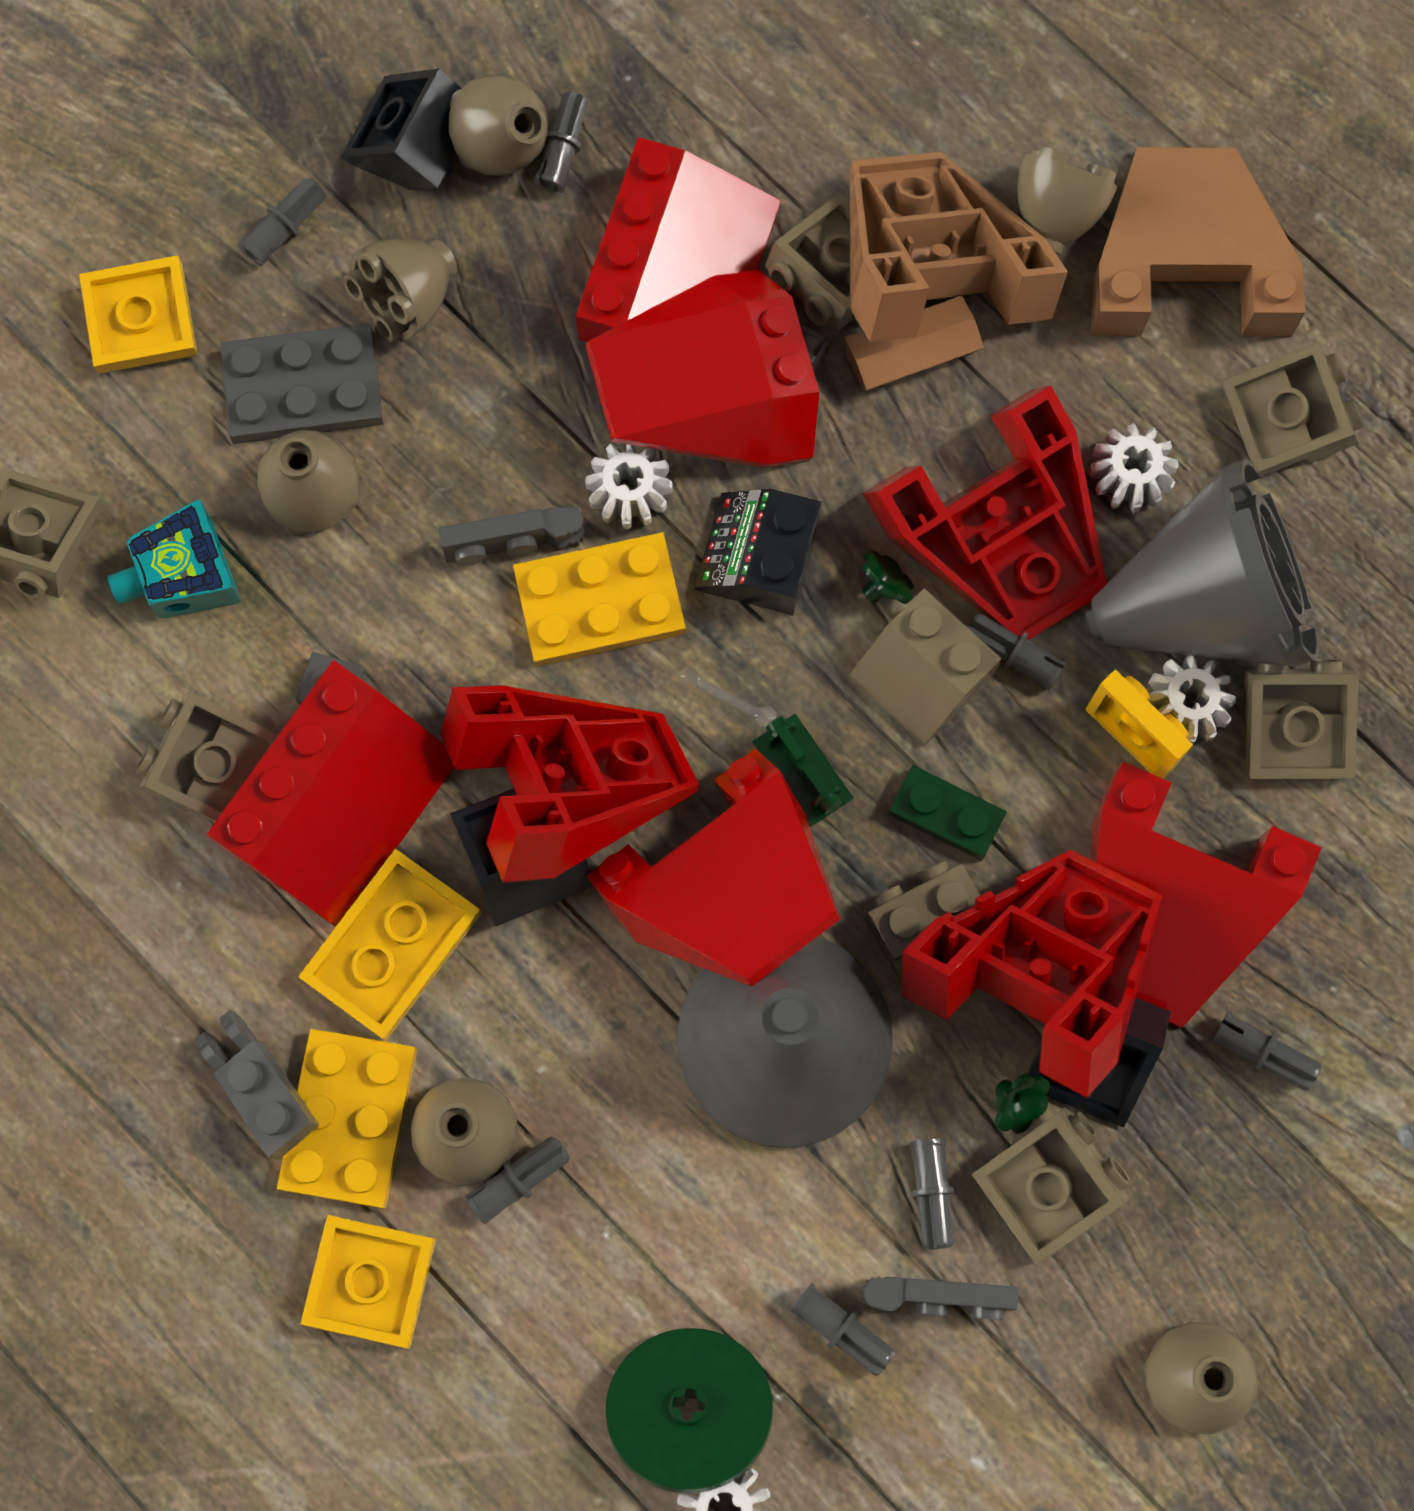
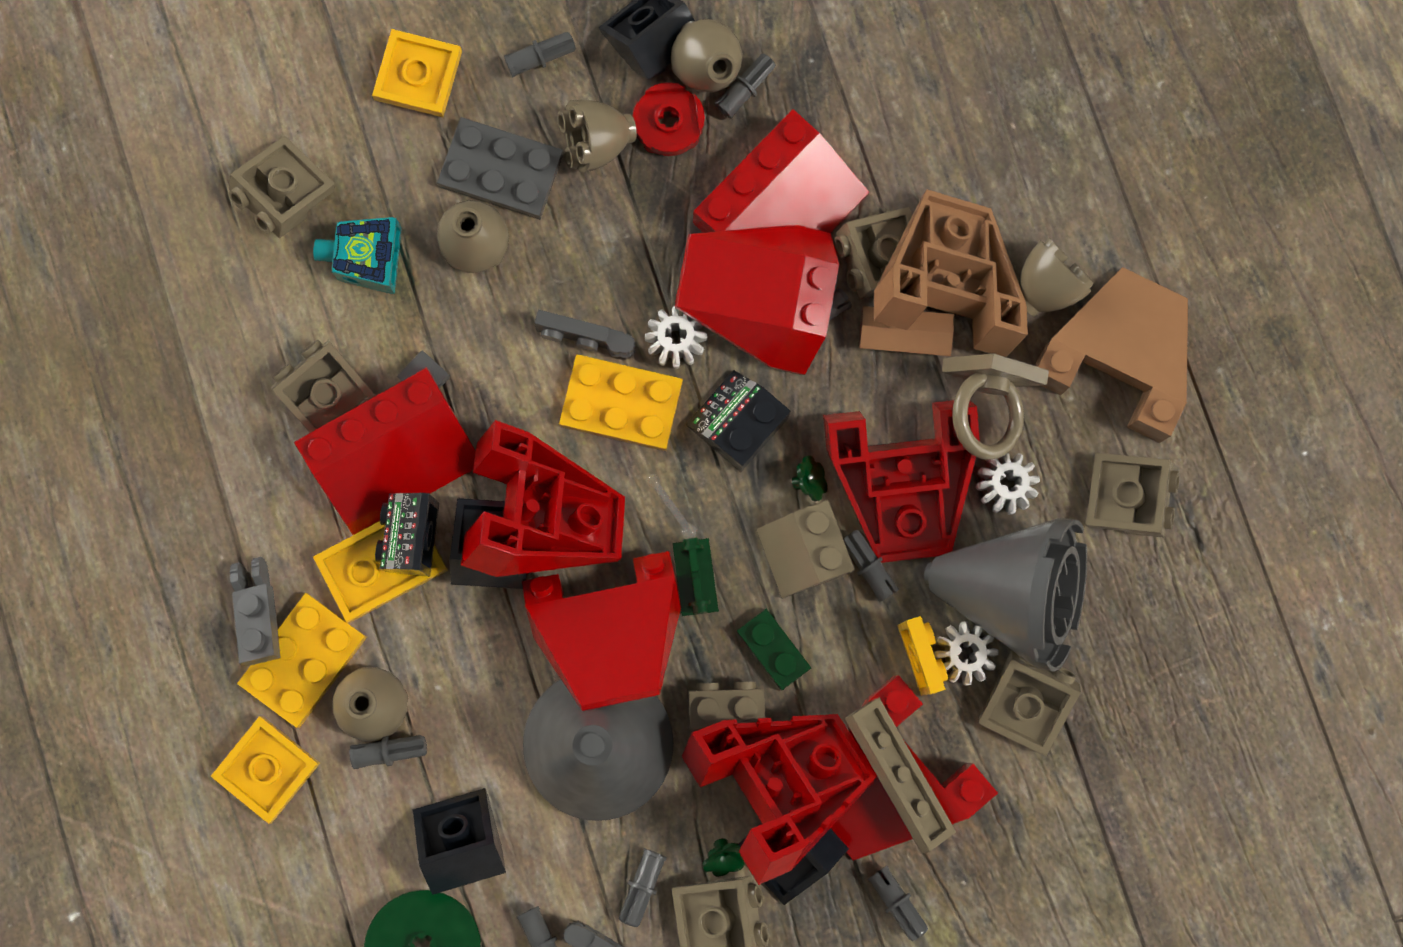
camera: 20 degrees right, 5 degrees up
(410, 882) = (408, 534): none -> black slope
(493, 200) = (682, 104): none -> red plate
(668, 1249) = (458, 841): none -> black slope
(1051, 339) = (993, 376): none -> dark tan tile
(1190, 882) = (900, 775): none -> dark tan plate

